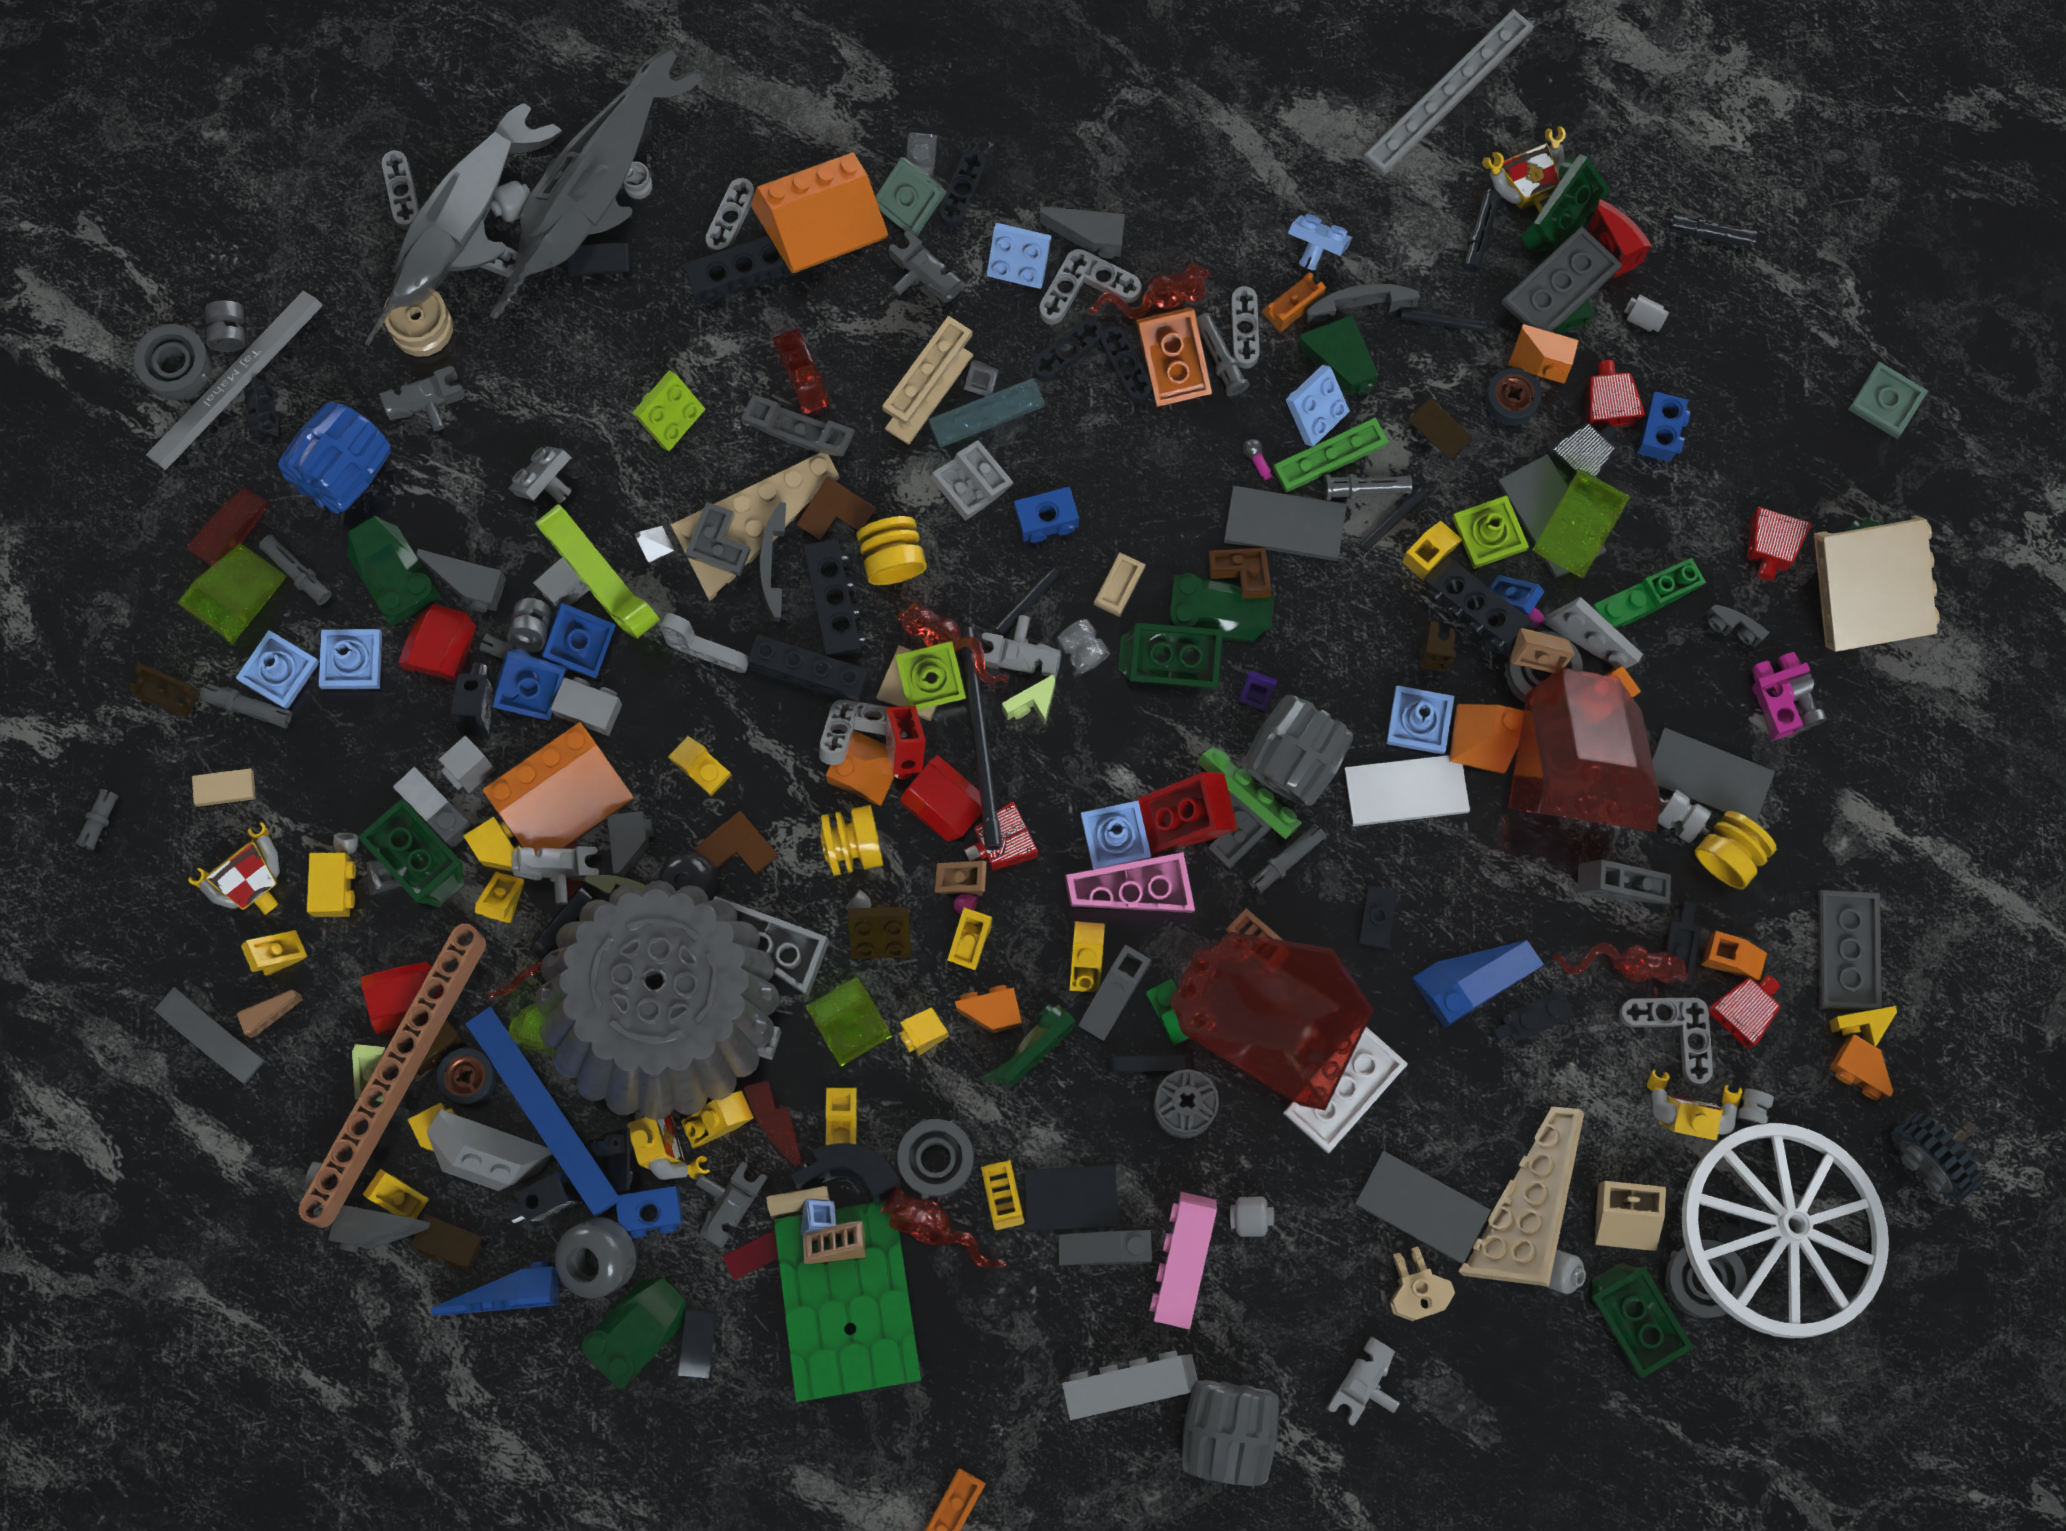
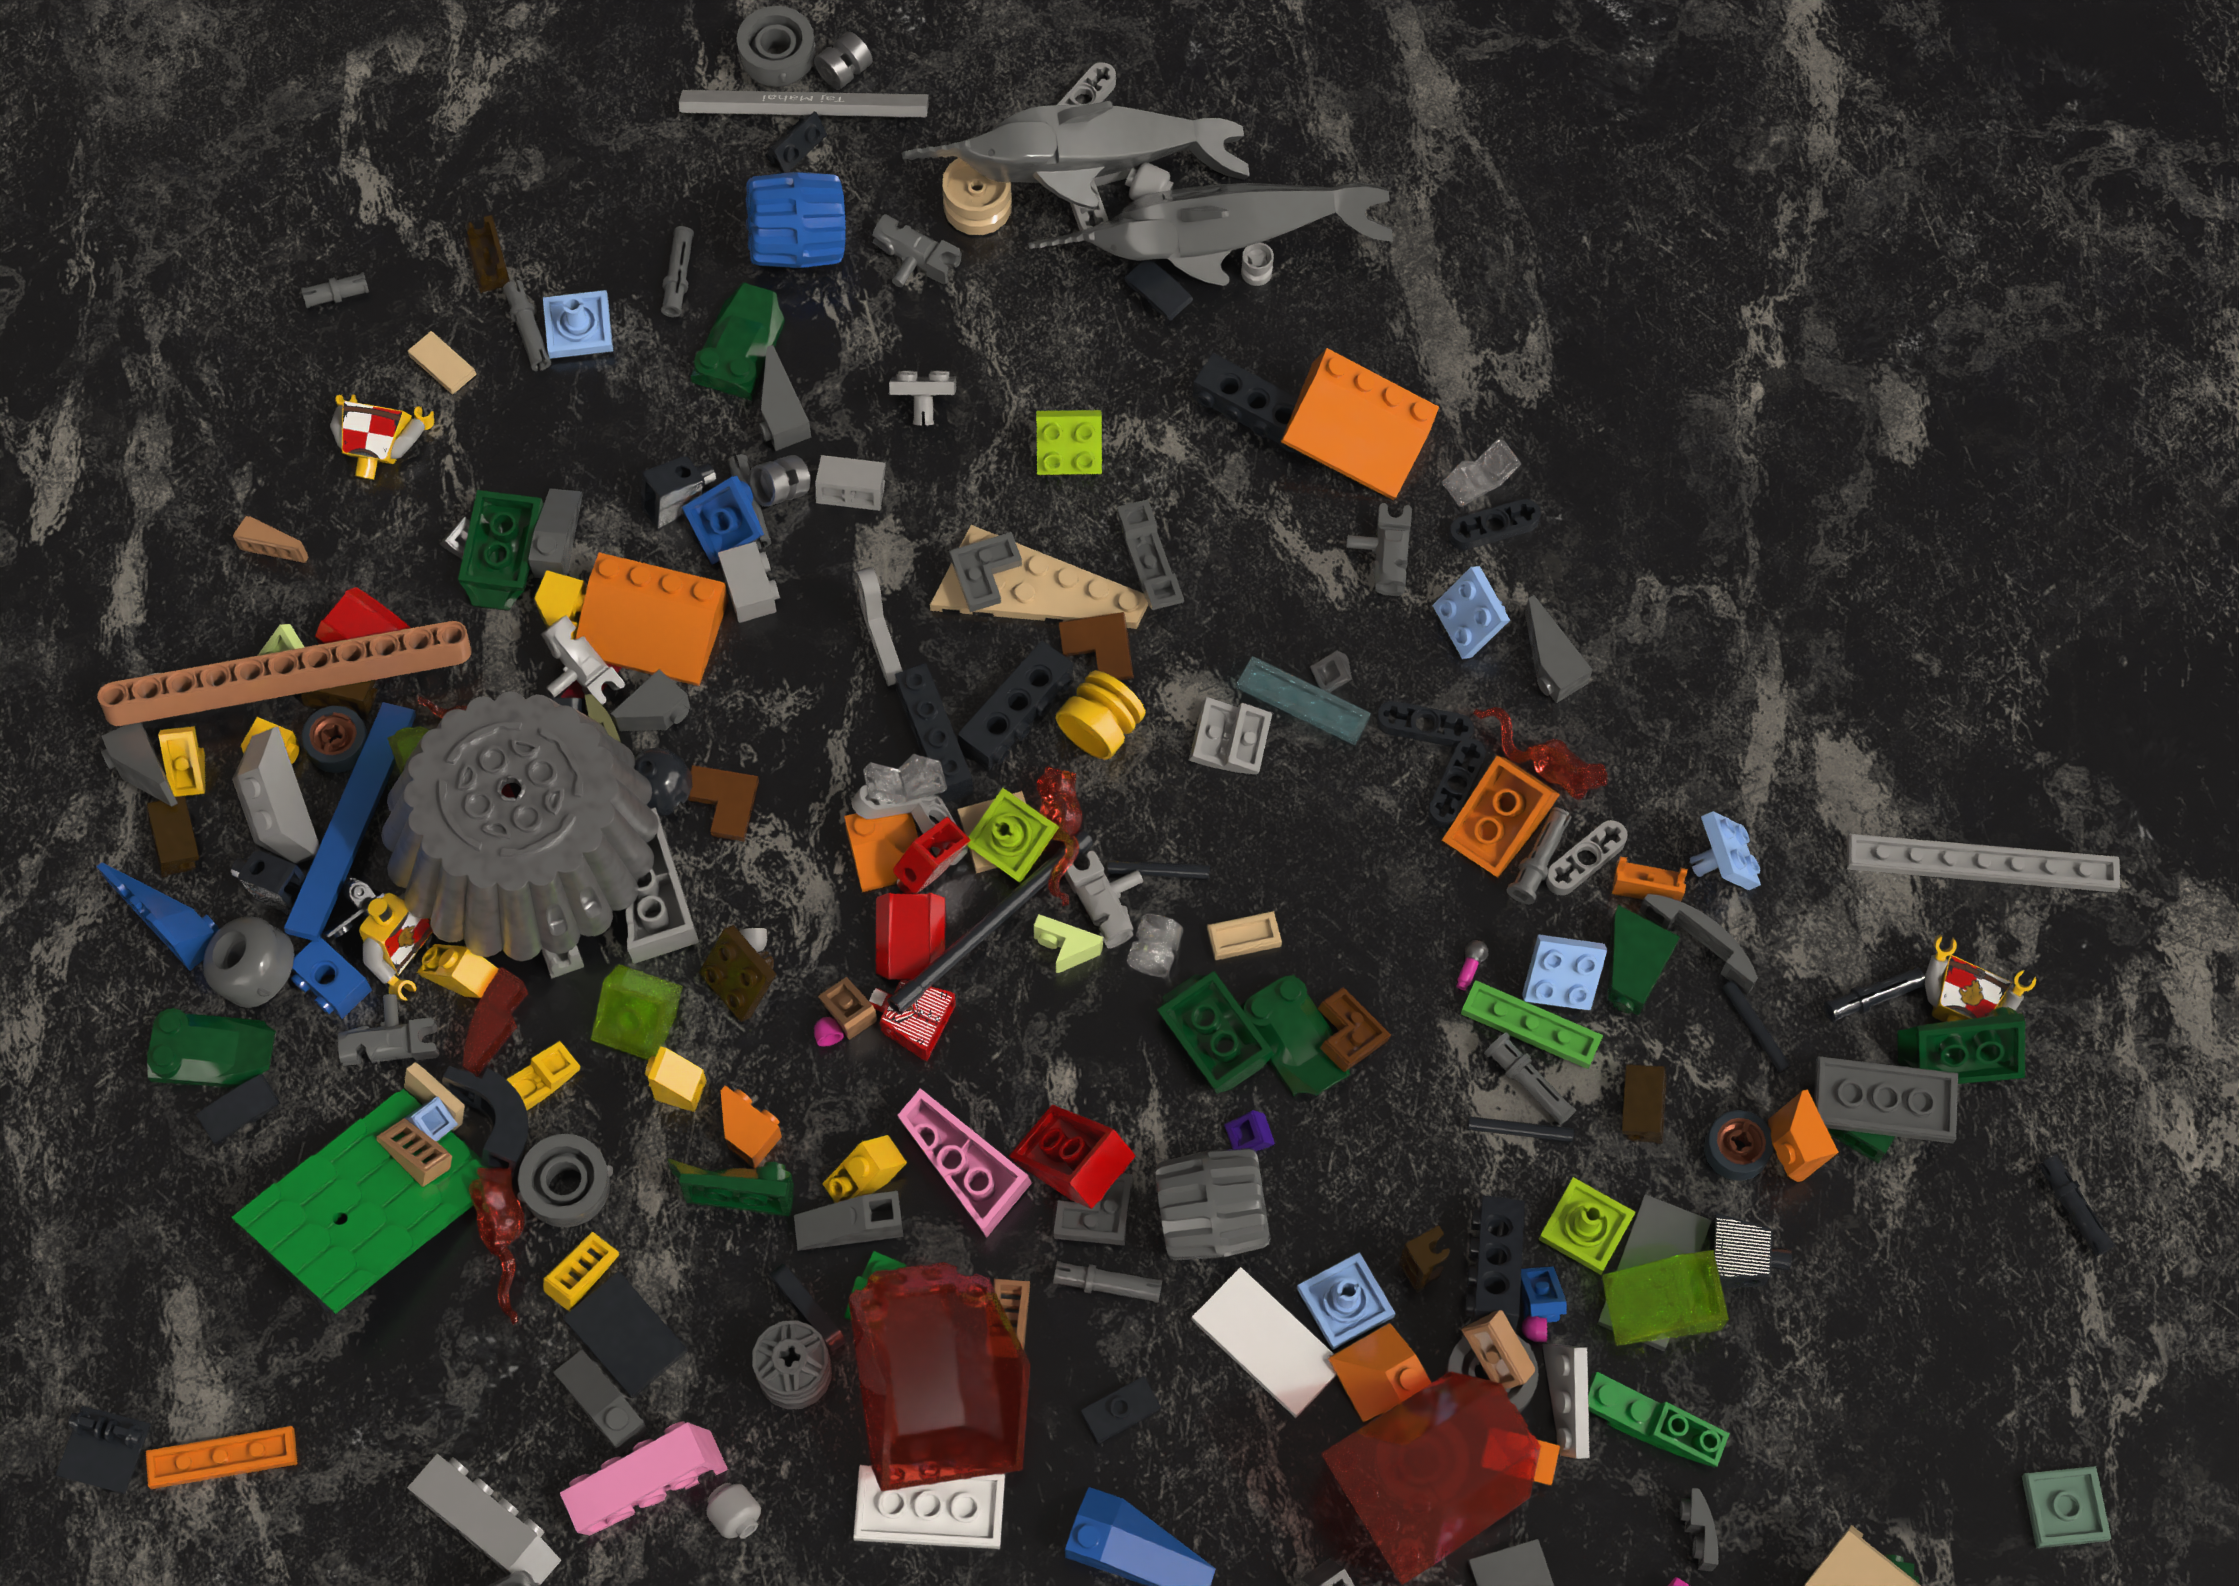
camera: 50 degrees right, 10 degrees down
(209, 1036) = (212, 515): dark grey slope -> none
(228, 527) = (669, 194): clear red slope -> none
(231, 592) = (614, 238): clear neon green slope -> none
(273, 952) = (325, 505): yellow slope -> none
(330, 885) = (419, 503): yellow brick -> none
(345, 842) = (467, 489): light grey hinge -> none
(350, 659) = (634, 371): light blue plate -> none
(438, 642) = (707, 426): red slope -> none
(465, 765) = (611, 524): light grey brick -> none
(500, 897) = (516, 643): yellow slope -> none
(577, 640) = (799, 529): blue slope -> none
(626, 609) = (869, 490): lime beam -> none
(654, 543) = (943, 525): slope -> none
(699, 765) = (772, 714): yellow slope -> none
(729, 204) = (1287, 372): light grey beam -> none
(752, 1255) = (354, 1096): dark red sticker -> none
(771, 596) = (1040, 604): dark grey slope -> none
(801, 371) = (1202, 522): clear red slope -> none
(839, 714) = (913, 780): none -> clear slope
(851, 840) = (803, 884): yellow wheel -> none
(909, 196) = (1442, 484): sand green tile -> none
(928, 380) = (1282, 623): tan fence -> none
(970, 938) = (796, 1055): yellow slope -> none
(1057, 502) = (1244, 805): blue brick -> none
(1086, 275) = (1509, 685): light grey beam -> none
(1115, 835) = (1002, 1110): light blue plate -> none
(1245, 789) = (1141, 1199): bright green plate -> none
(1285, 523) = (1431, 1036): dark grey tile -> none
(1431, 549) = (1522, 1181): yellow slope -> none
(1612, 398) = (1819, 1237): red torso -> none
(1619, 236) = (1980, 1119): red slope -> none
(1646, 313) = (1934, 1205): light grey brick -> none
(1658, 425) = (1832, 1300): blue brick -> none
(1775, 541) = (1819, 1503): red torso -> none

